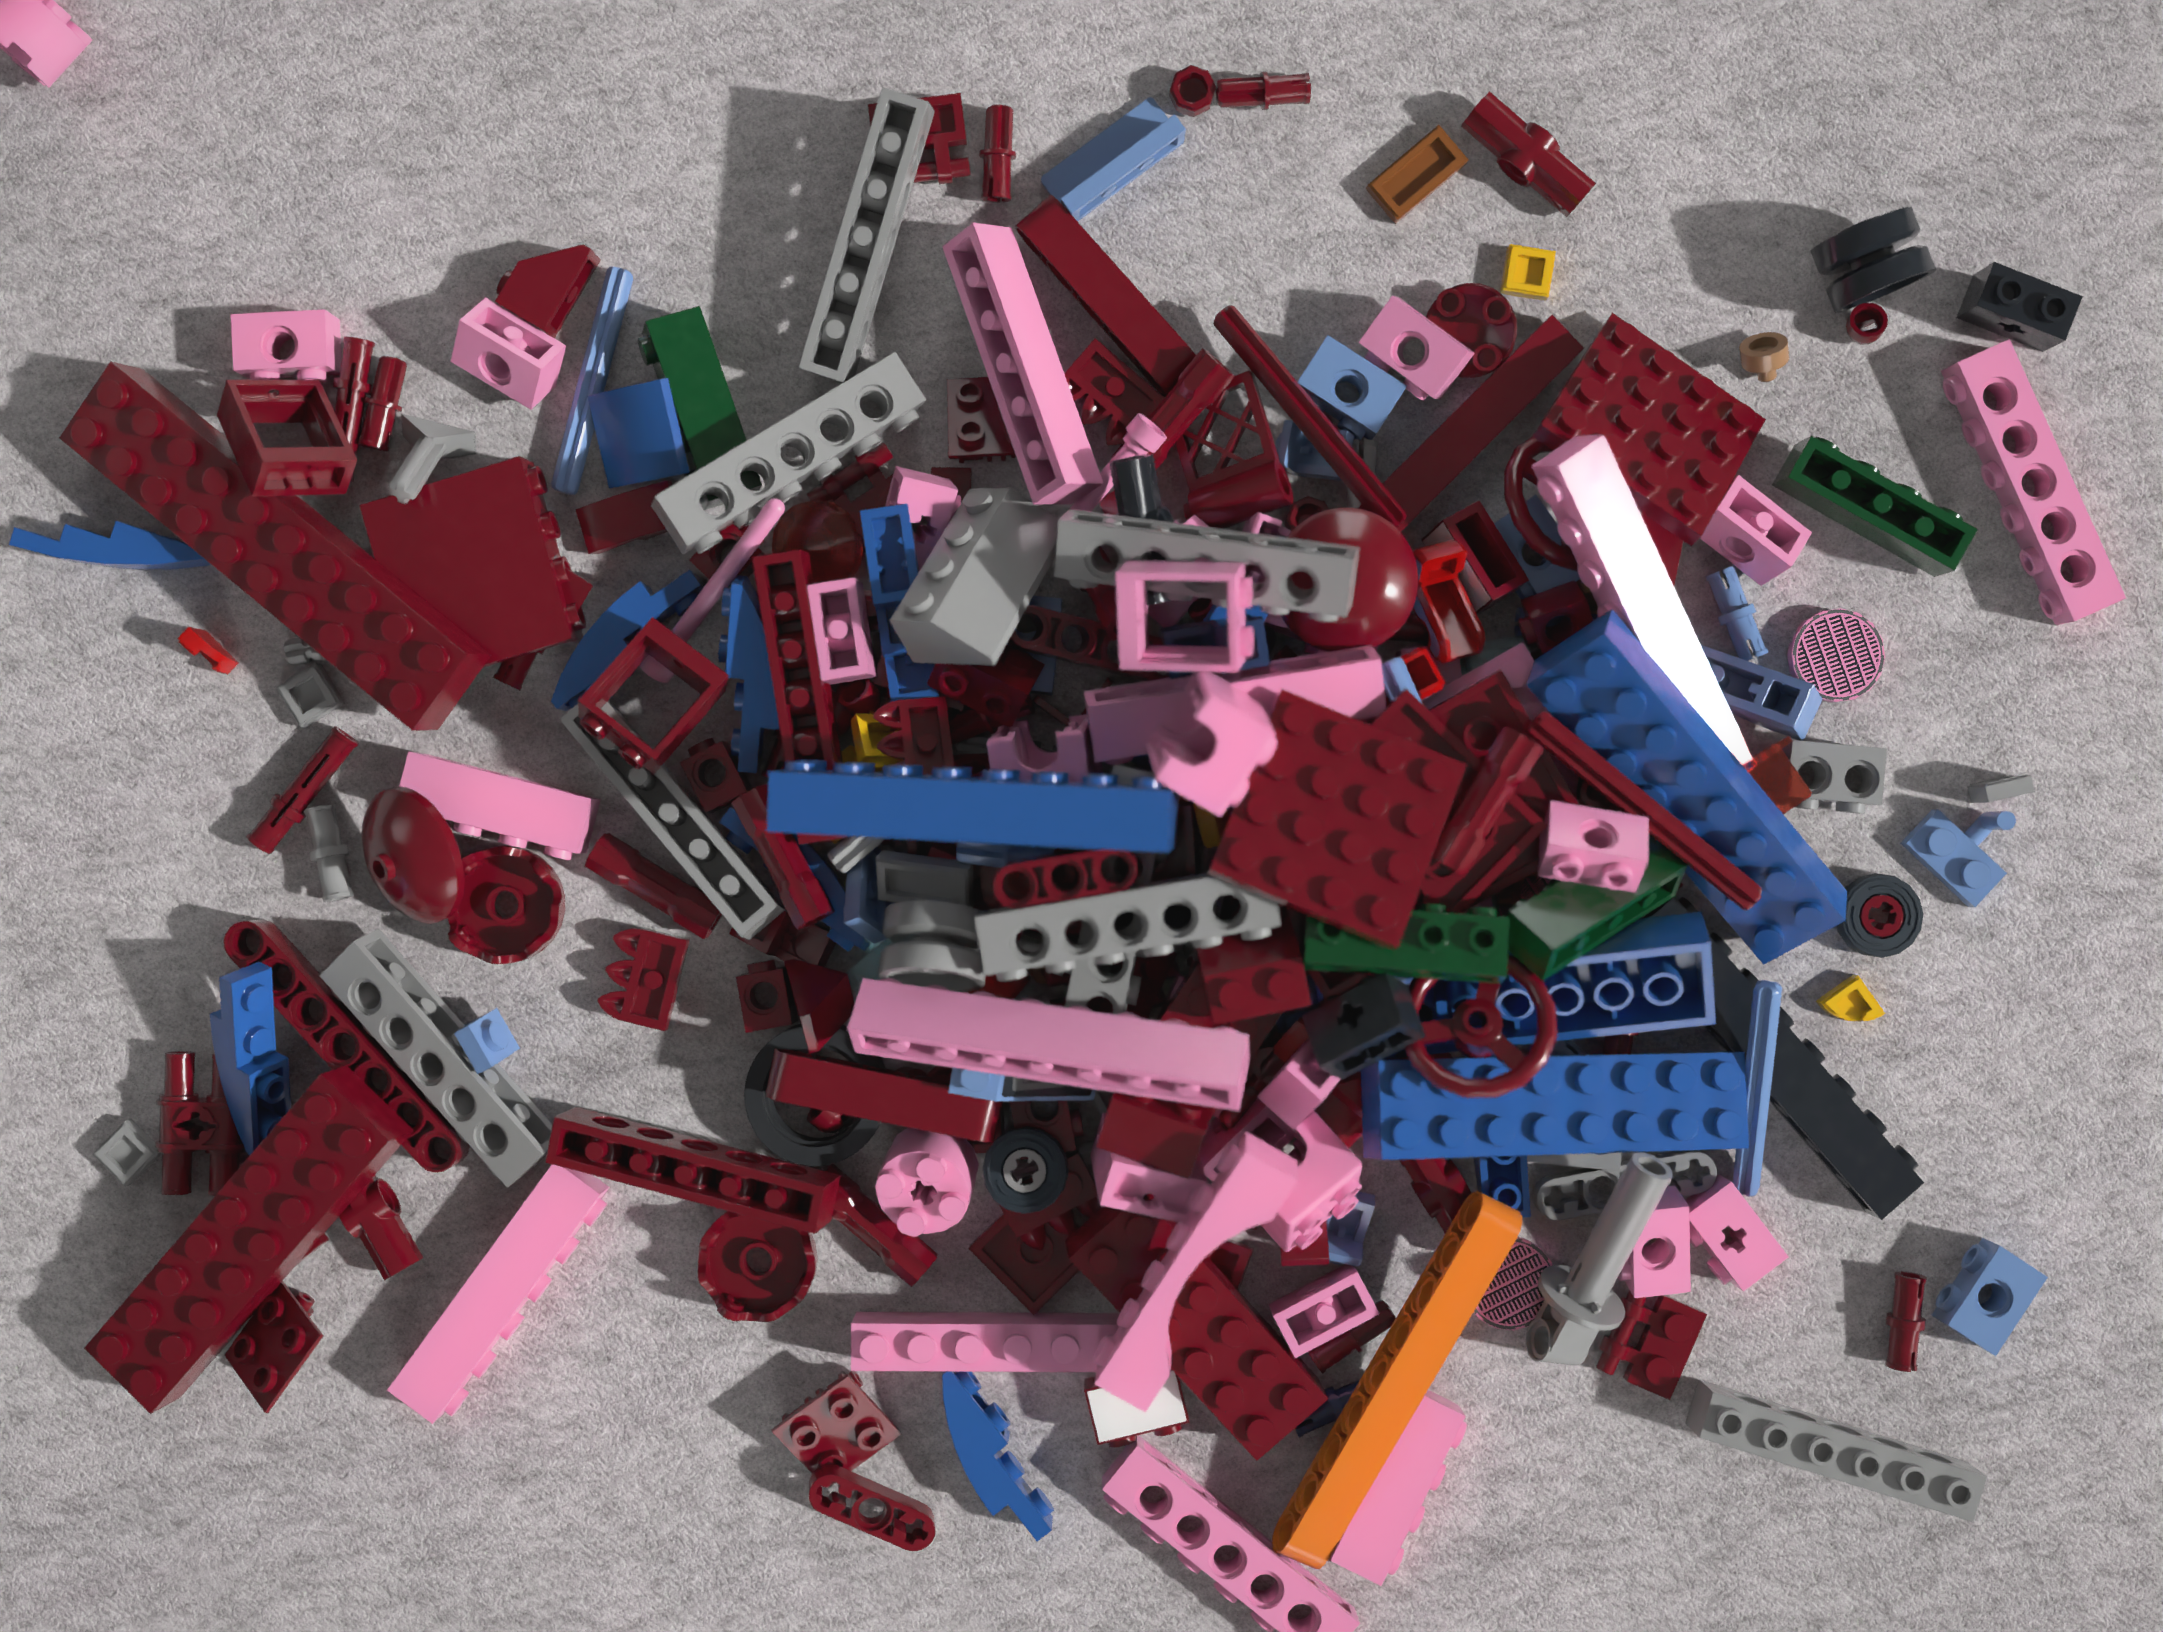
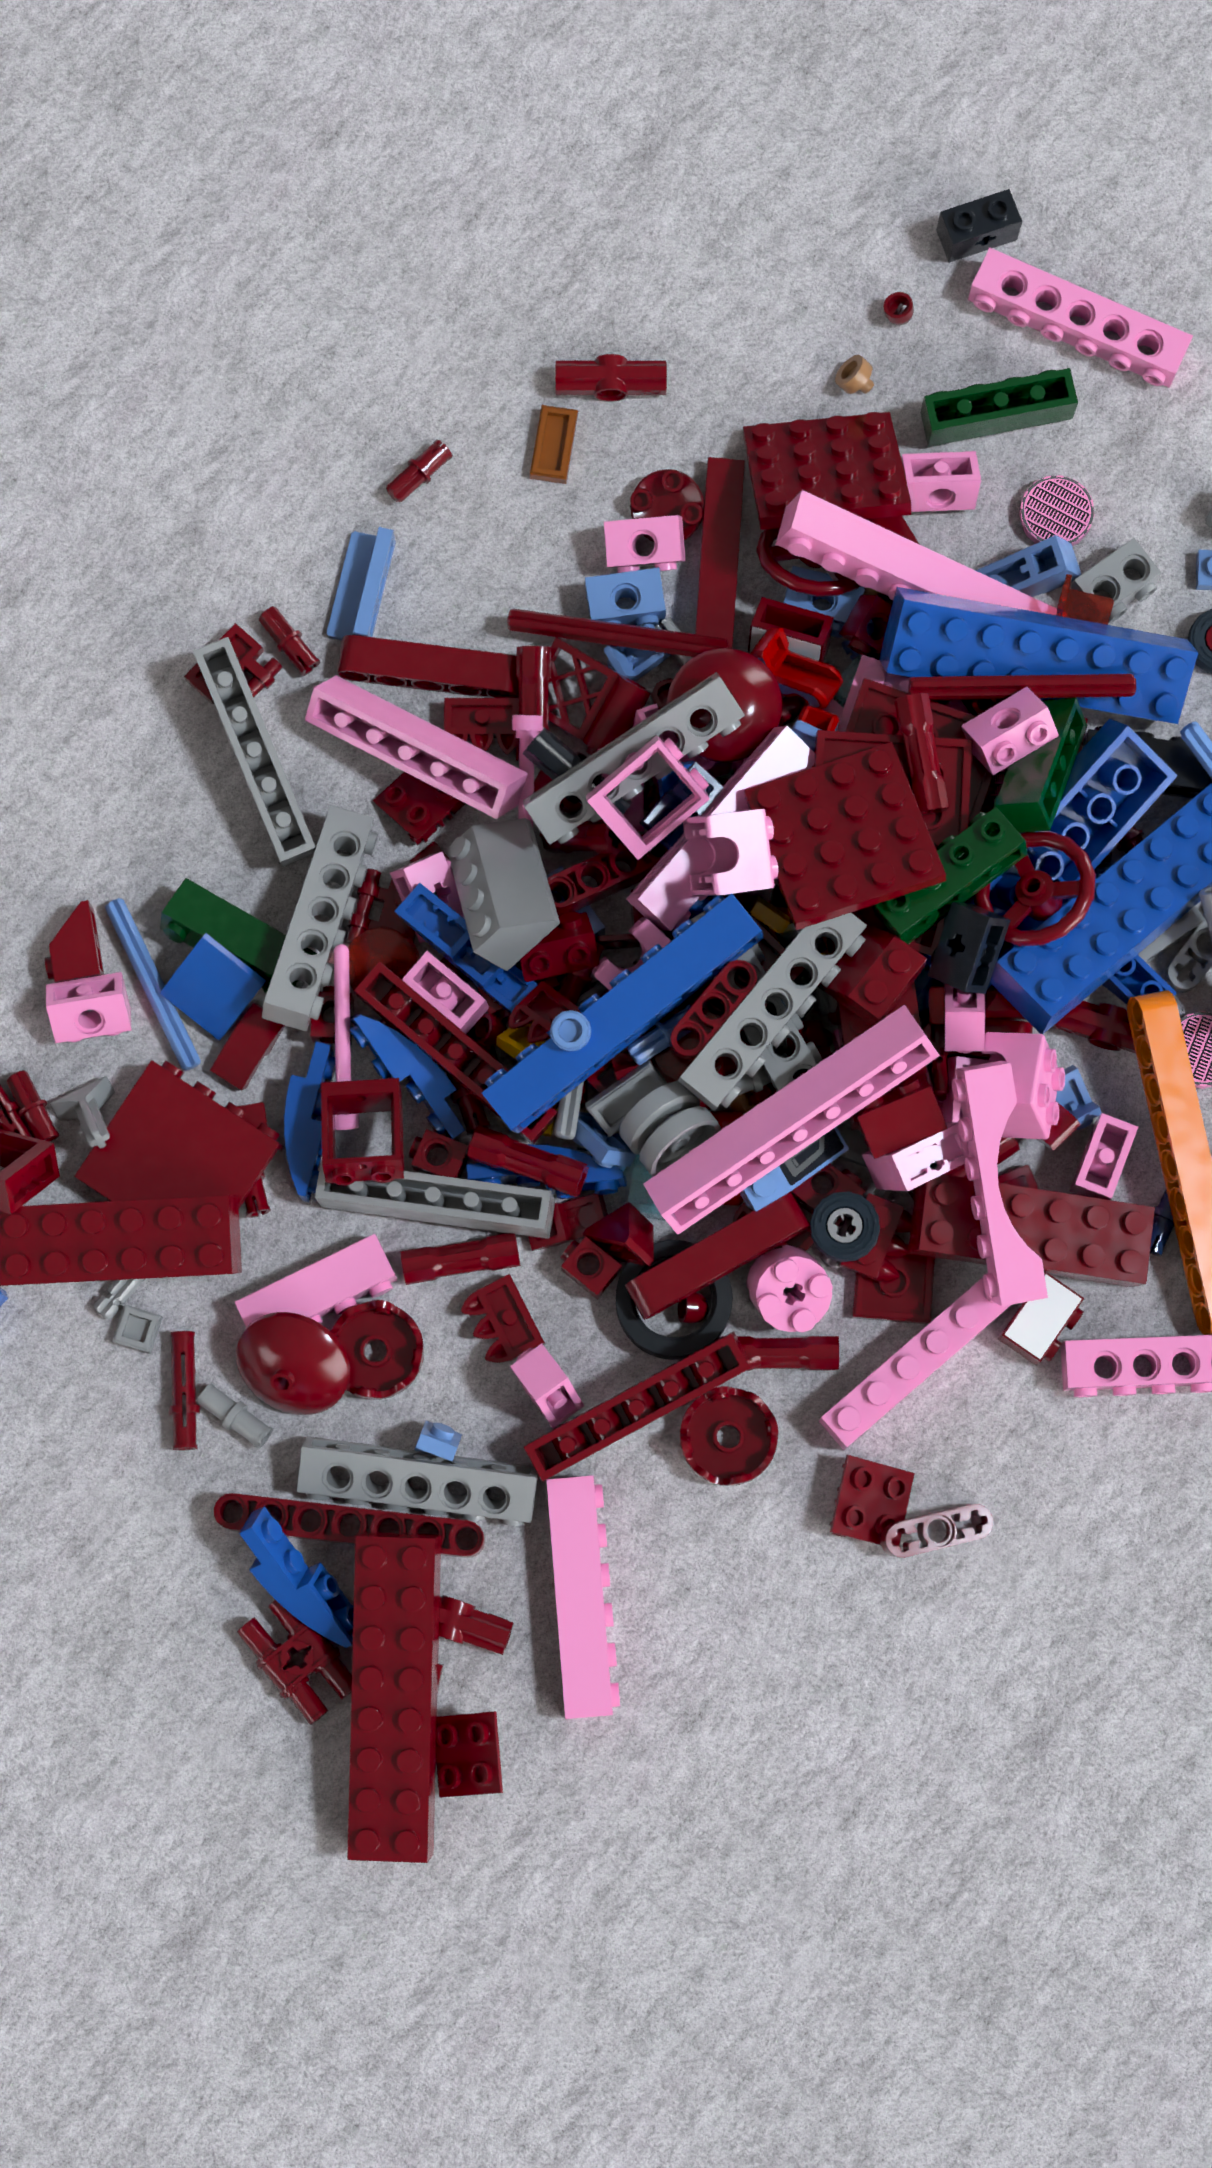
camera: 40 degrees left, 10 degrees down
(127, 1152) = (265, 1722): light grey tile -> none
(202, 642) = (49, 1354): red tile -> none
(626, 1076) = (547, 1385): none -> bright pink brick
(900, 788) = (570, 1030): none -> medium blue tile
(978, 1437) = (962, 1427): blue slope -> none
(1192, 91) = (375, 507): dark red tile -> none
(1353, 1339) = (1137, 1166): dark red axle -> none
(1527, 272) = (671, 445): yellow tile -> none
(1736, 613) = (975, 537): medium blue pin -> none
(1871, 255) = (869, 267): black wheel -> none

